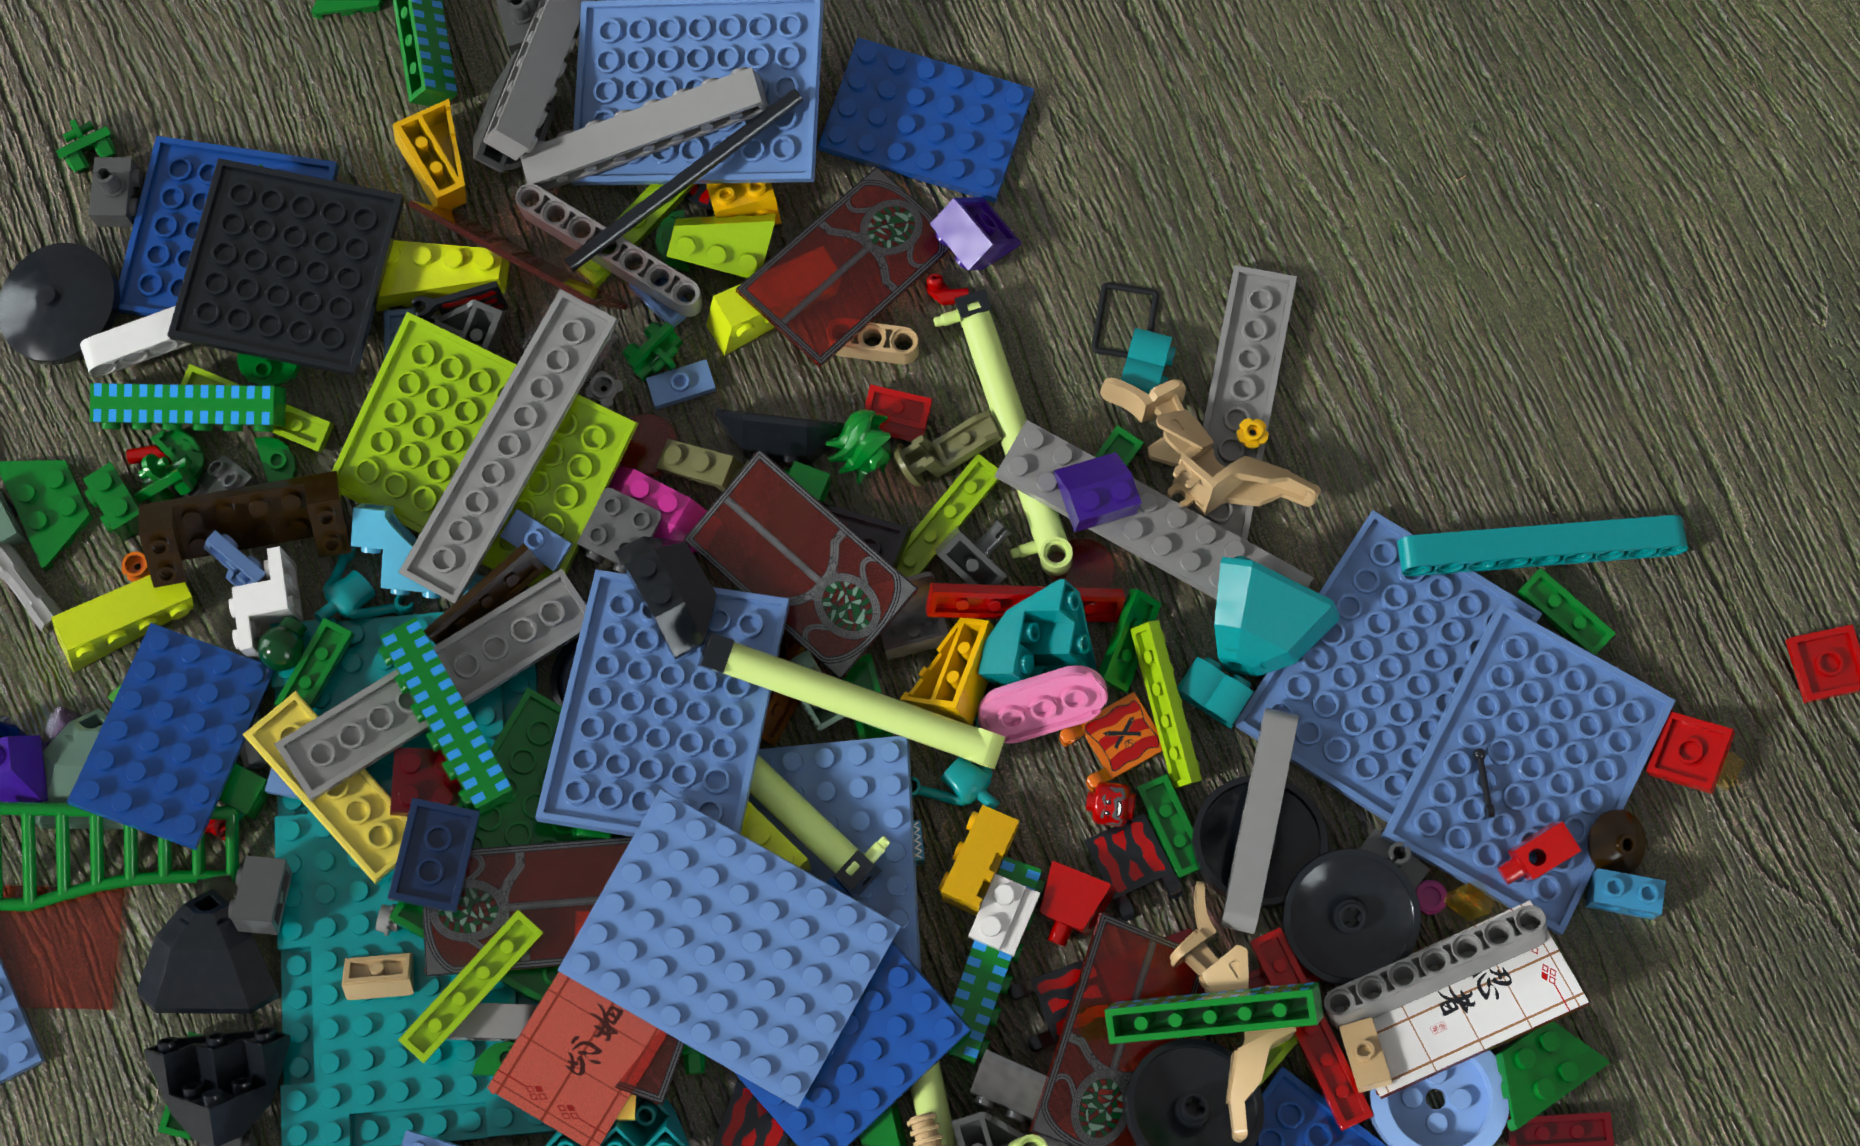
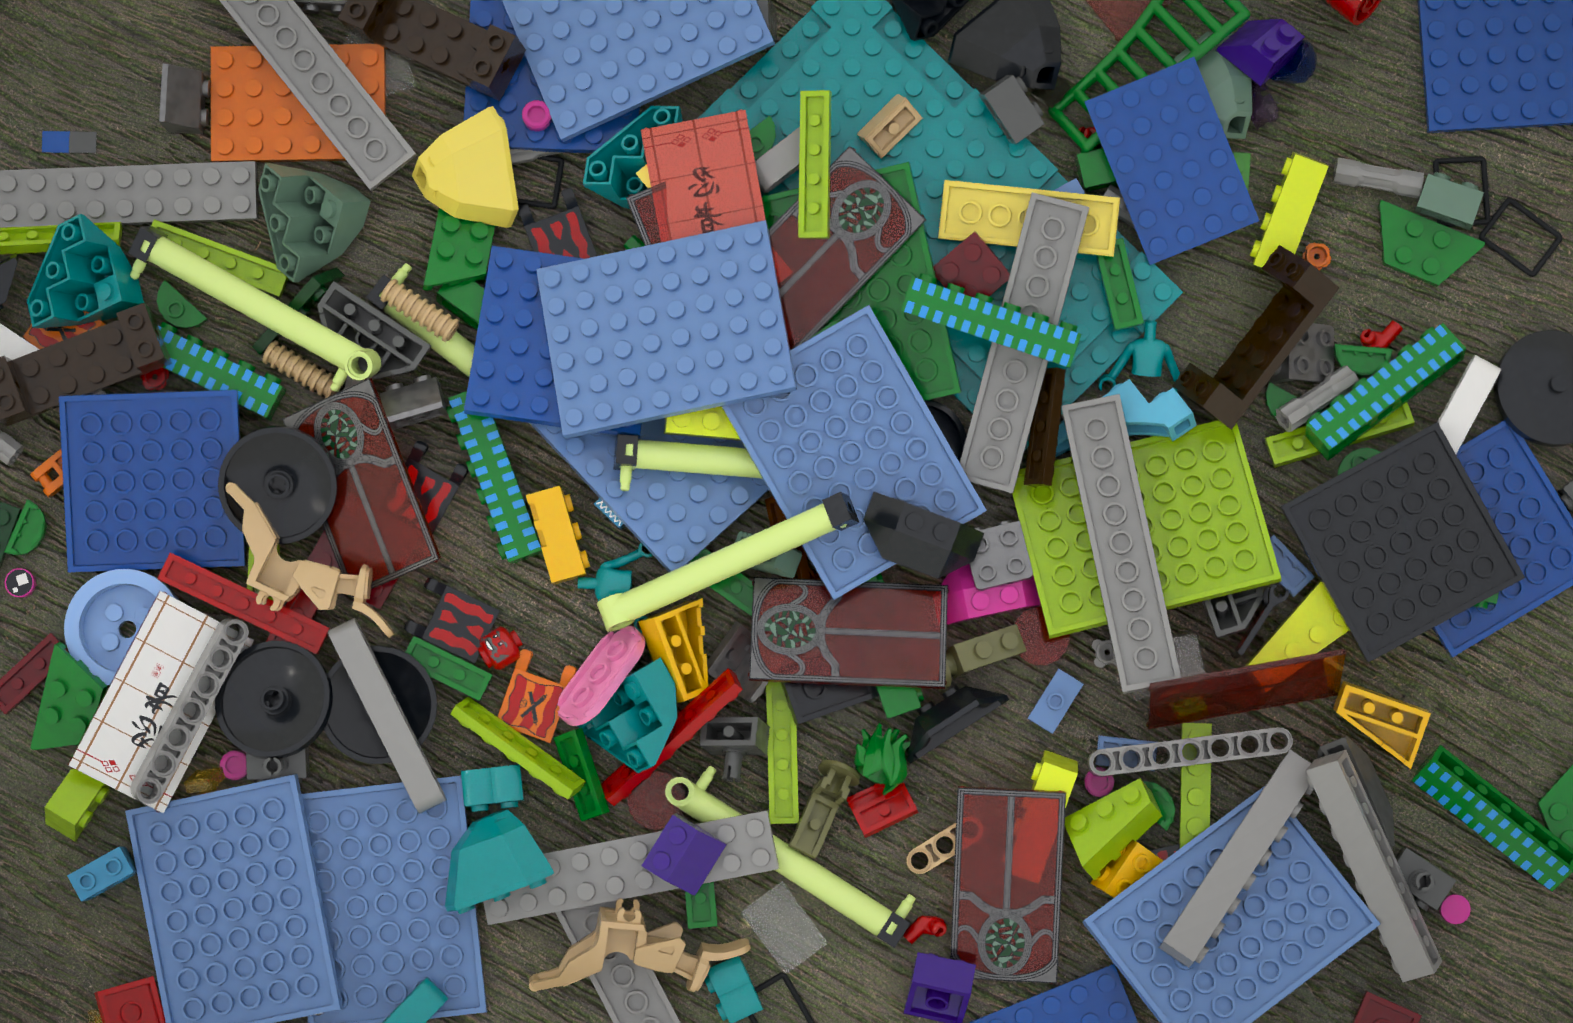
camera: 135 degrees right, 10 degrees up
(115, 498) = (1372, 286): green brick -> none
(161, 476) = (1353, 327): green hips -> none
(241, 569) = (1233, 309): medium blue plate -> none
(265, 602) = (1195, 300): white bracket -> none
(266, 446) = (1300, 409): none -> light grey axle
(282, 645) = (1154, 280): dark green piece -> none
(383, 923) = (917, 165): light grey plate -> none
(434, 855) = (912, 224): dark blue plate -> none
(542, 541) = (1049, 500): medium blue plate -> none
(655, 352) = (1090, 707): green hips -> none
(684, 179) = (1174, 842): black piece -> none
(708, 289) = (1098, 785): none -> dark pink tile
(1004, 915) = (507, 509): white plate -> none
(1062, 385) = (784, 927): none -> clear piece
(1073, 902) = (471, 559): red torso -> none
(1214, 1013) = (307, 547): green brick -> none
(1252, 441) = (606, 998): yellow plate -> none
(1365, 1055) = (192, 612): tan plate -> none
(1479, 755) = (272, 885): black hinge -> none
(1552, 847) = (176, 857): red torso -> none
(1606, 974) = (74, 803): none -> lime wedge
(1607, 838) = (143, 902): dark brown dish -> none

